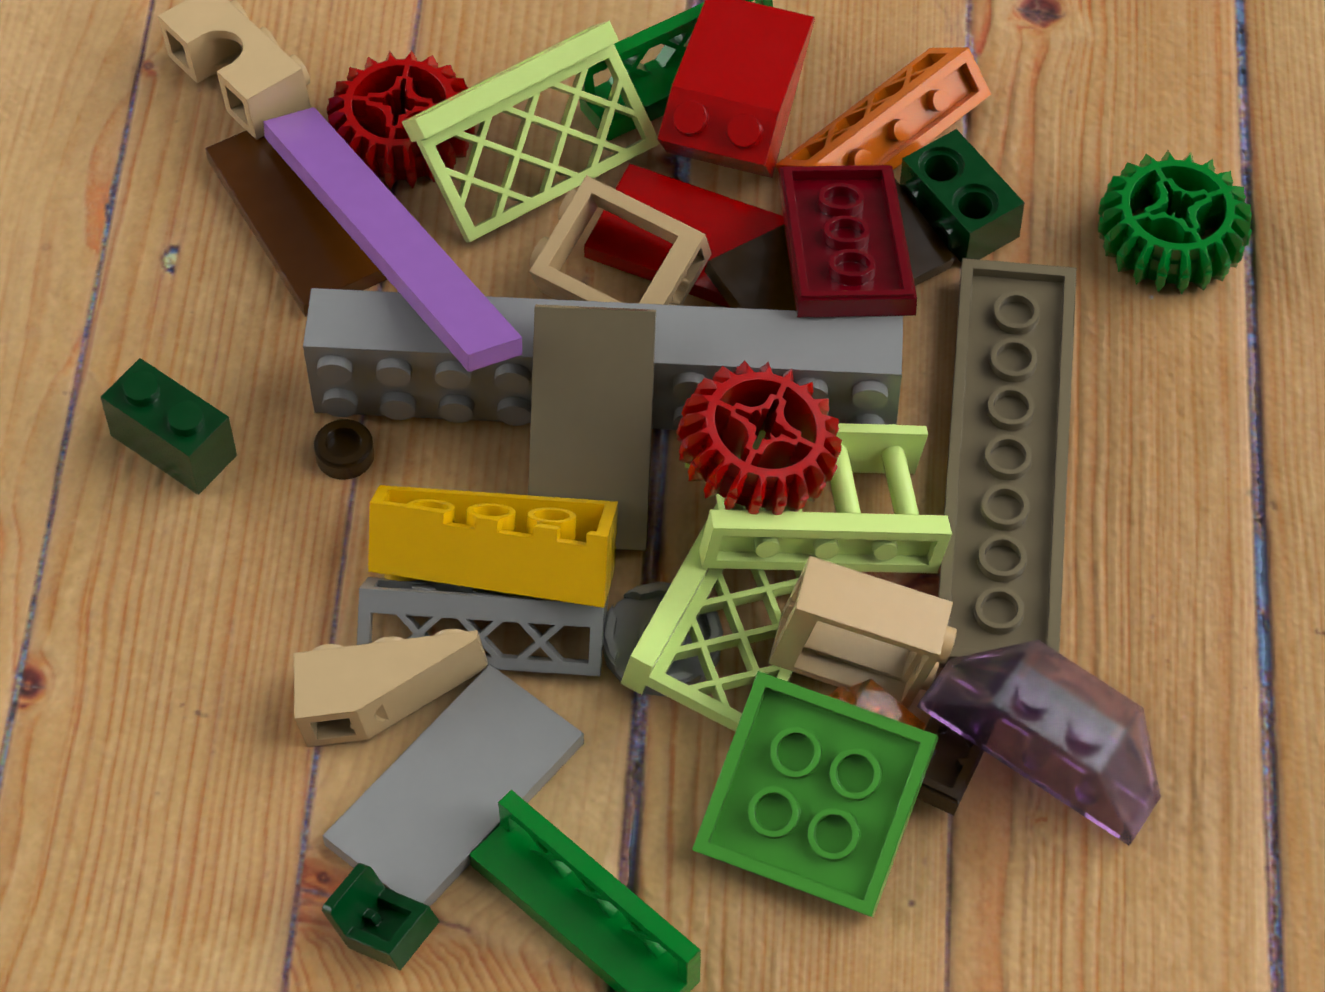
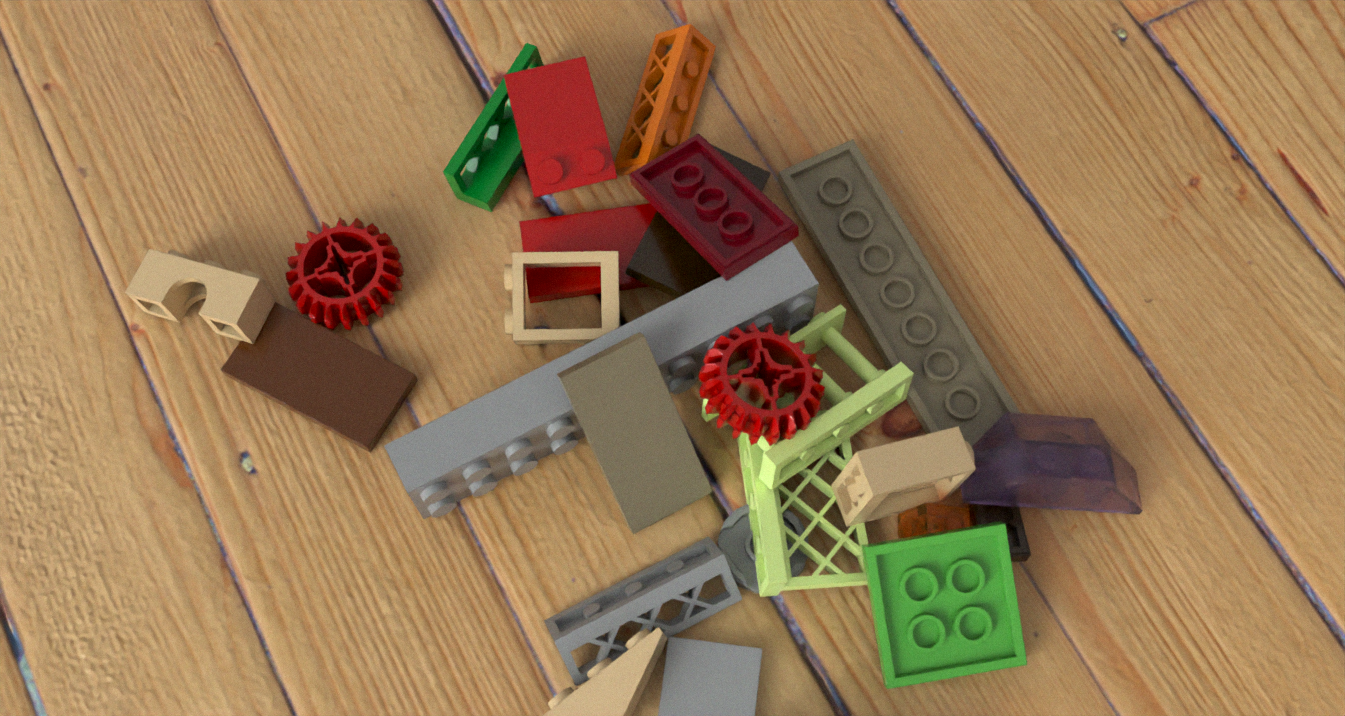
camera: 30 degrees left, 10 degrees up
(169, 426) = (335, 594): dark green brick -> none
(344, 449) = (464, 536): dark brown tile -> none
(394, 240) = (415, 375): medium lavender tile -> none
(495, 542) = (624, 549): yellow wedge -> none
(511, 87) = (412, 218): yellowish green fence -> none
(962, 197) = (752, 121): dark green brick -> none
(1167, 237) = (895, 94): green gear -> none

